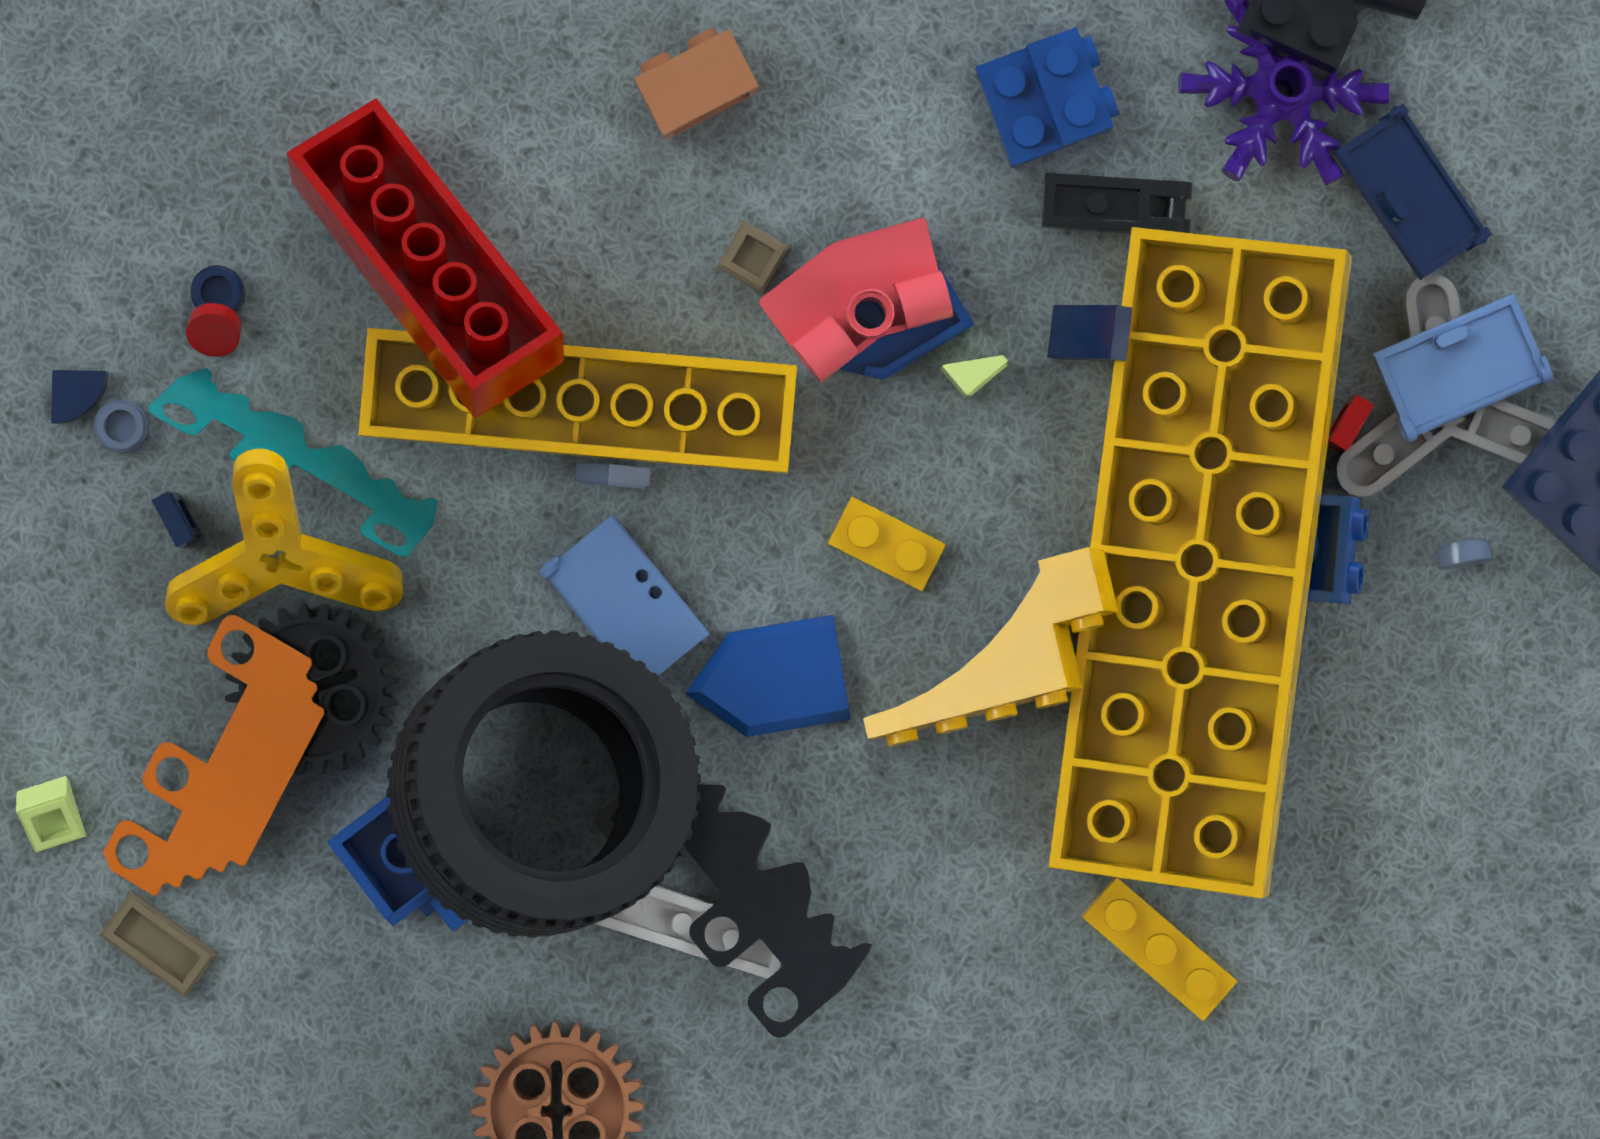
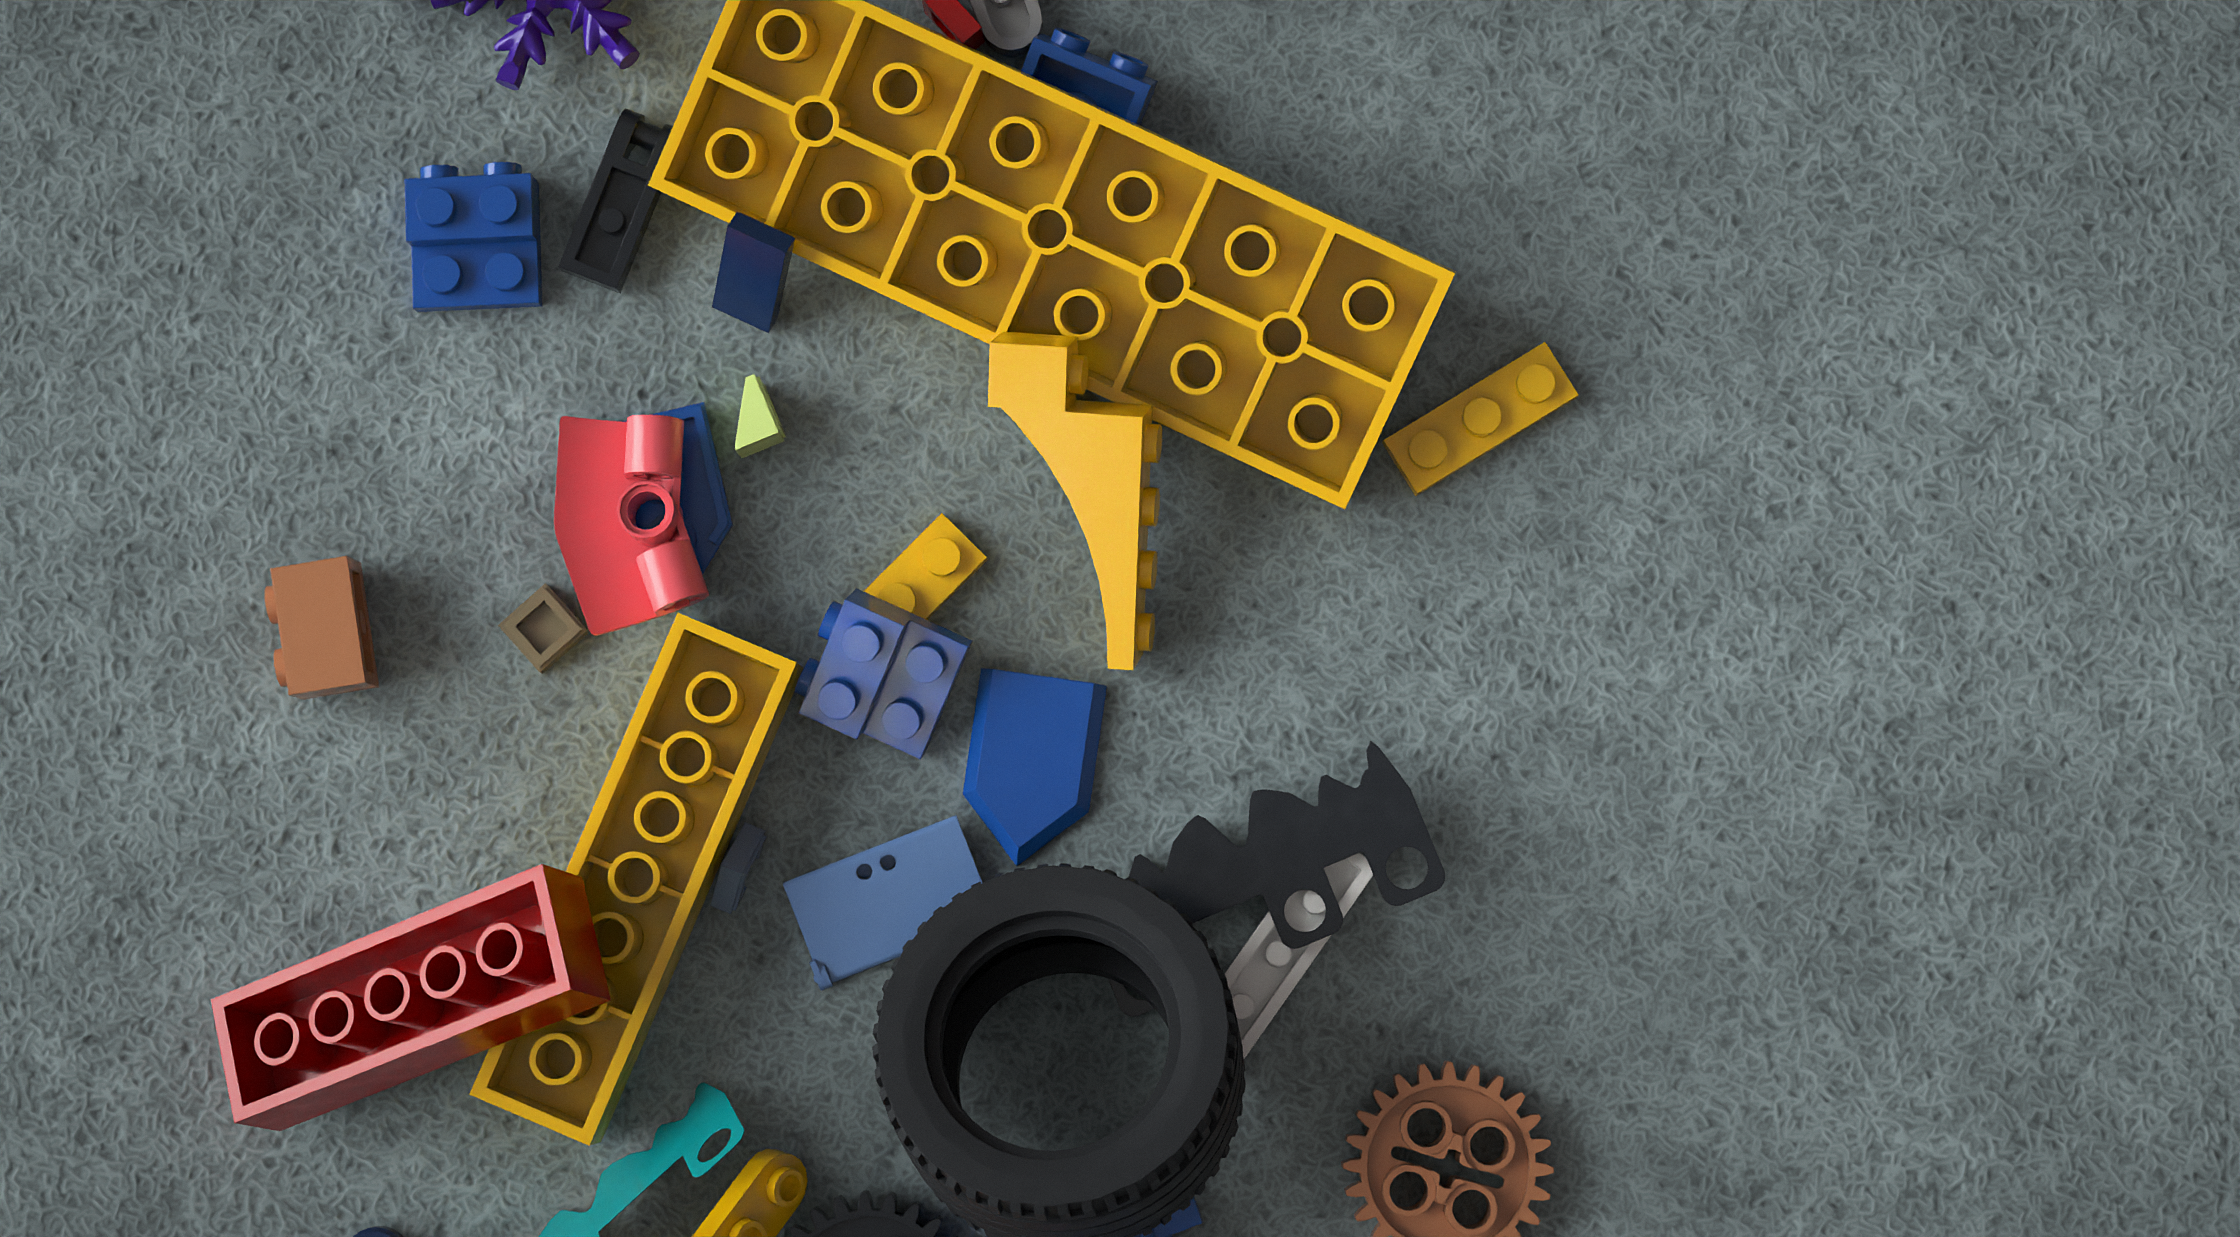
camera: 65 degrees left, 5 degrees down
(802, 539) = (881, 673): none -> blue plate

